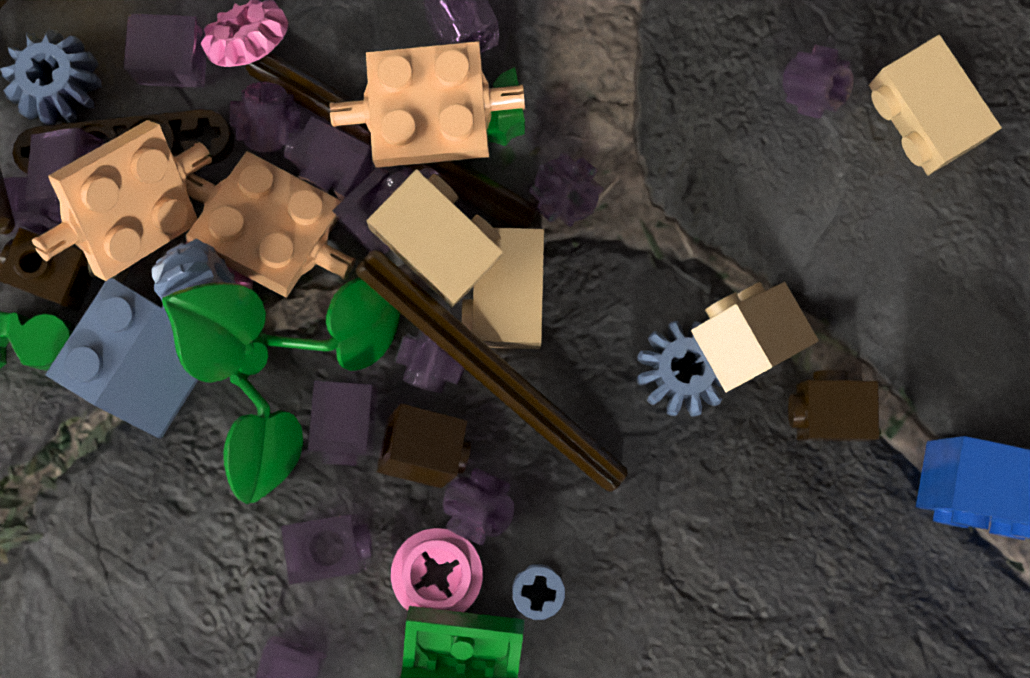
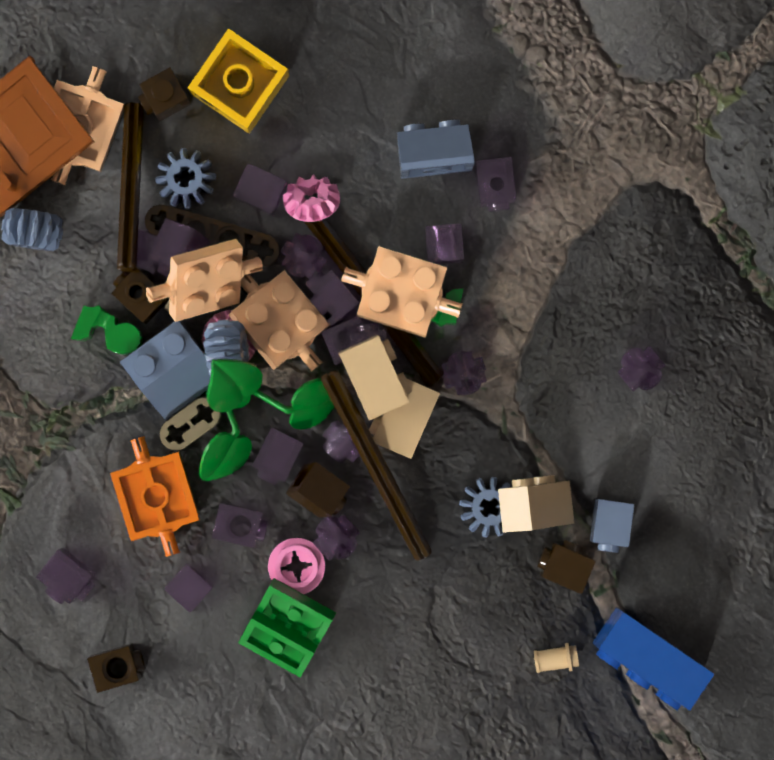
camera: 20 degrees right, 5 degrees up
(183, 557) = (155, 496): none -> orange plate
(208, 435) = (184, 417): none -> dark tan beam
(549, 605) = (353, 611): sand blue bush -> none
(874, 319) = (611, 524): none -> sand blue brick
(878, 552) = (556, 658): none -> tan pin
(932, 105) = (703, 411): tan brick -> none

